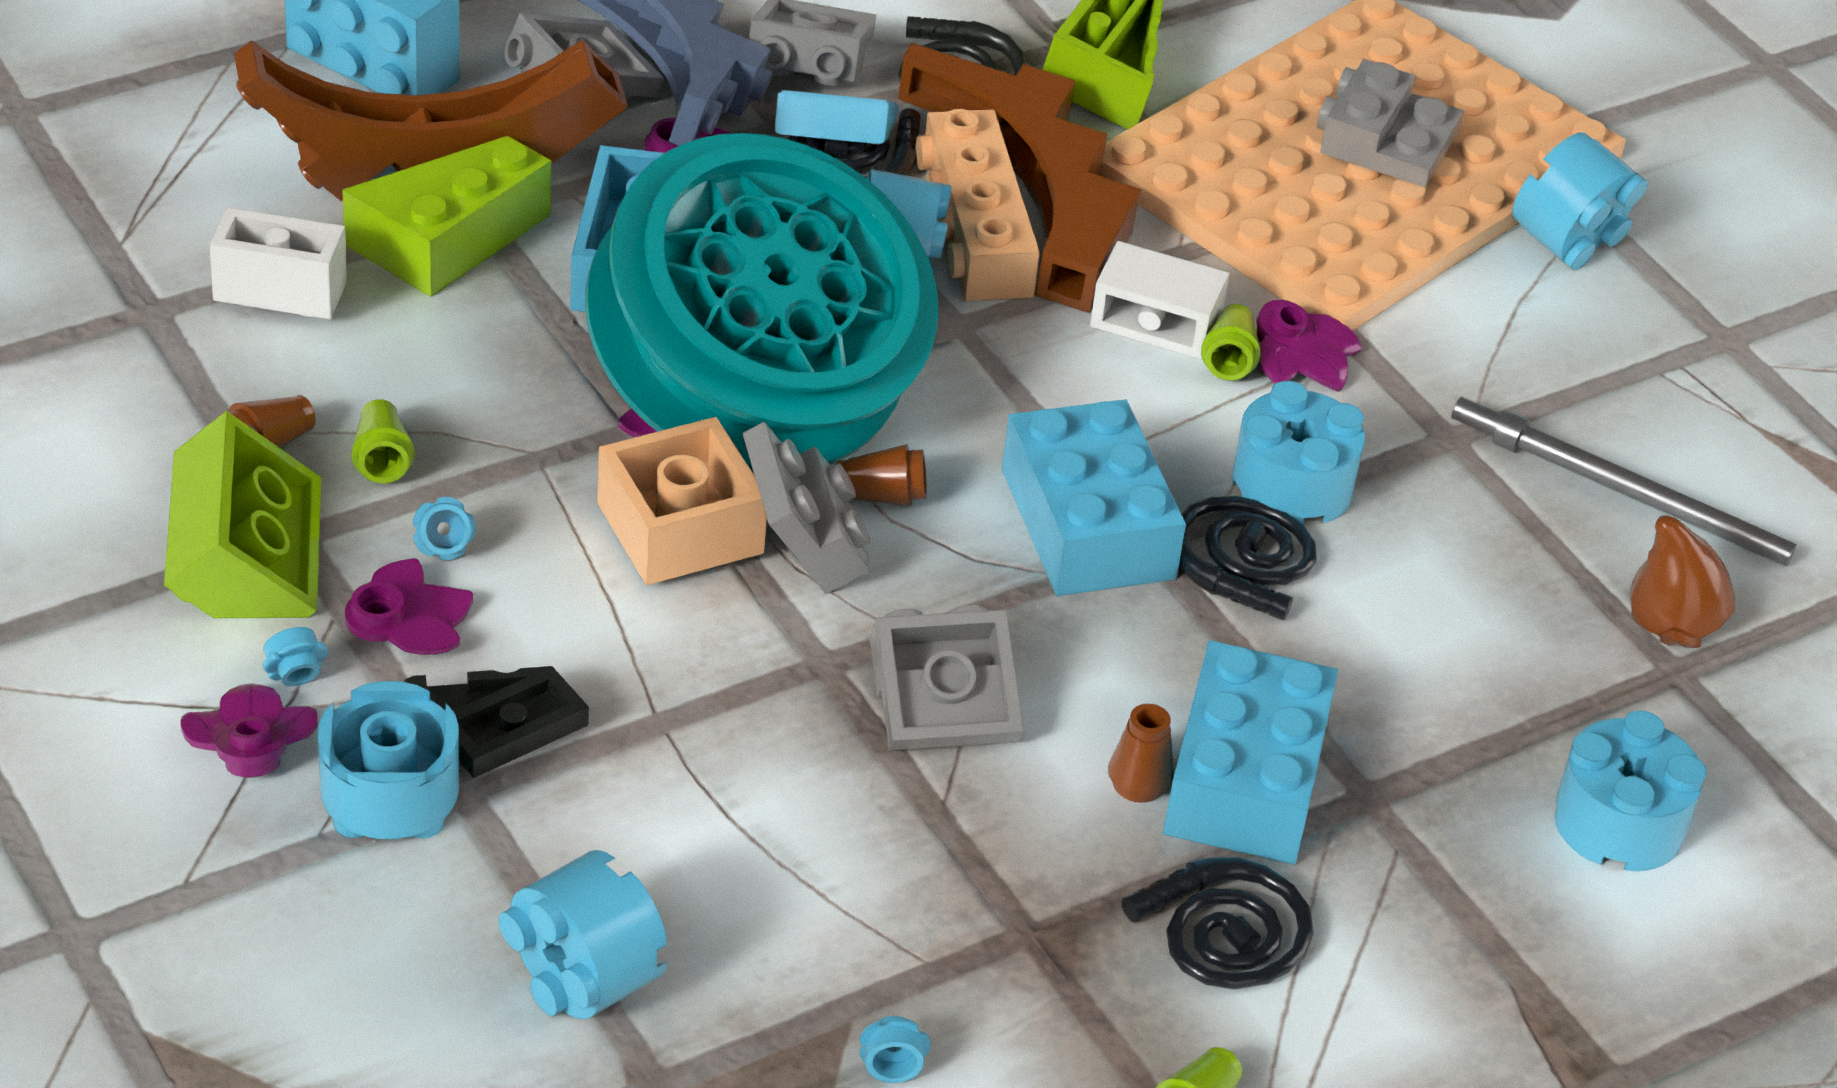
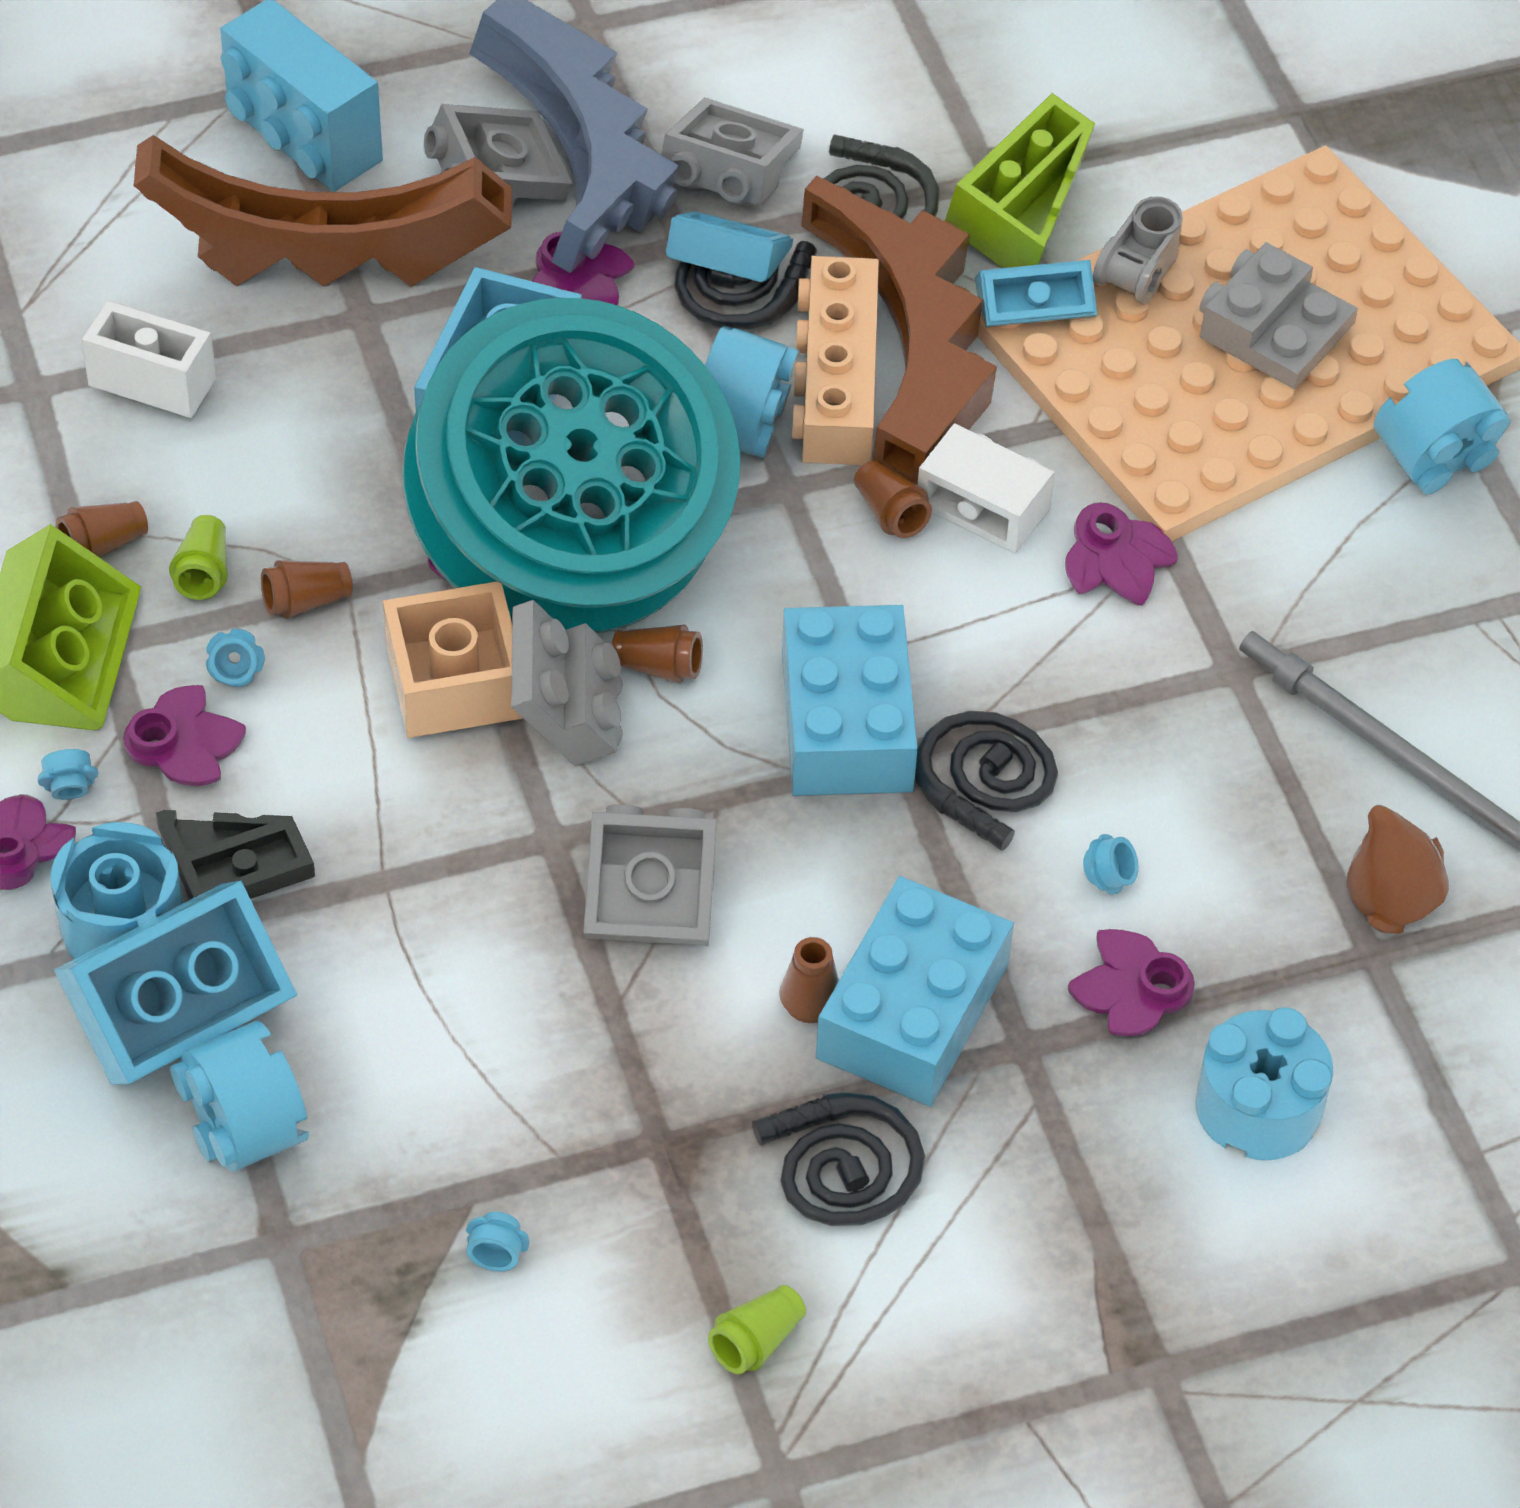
camera: 15 degrees right, 10 degrees up
(448, 212) = (326, 316): lime wedge -> none
(481, 832) = (175, 982): none -> medium azure brick
(496, 455) = (303, 586): none -> dark orange cone
(1073, 319) = (894, 500): none -> dark orange cone
(1155, 125) = (1036, 293): none -> medium azure slope
(1232, 344) = (1043, 543): lime cone -> none
(1246, 76) = (1142, 248): none -> light grey piece
(1299, 452) = (1064, 678): medium azure brick -> none
(1400, 615) = (1111, 863): none -> medium azure plate
(1460, 721) = (1127, 980): none -> magenta plate

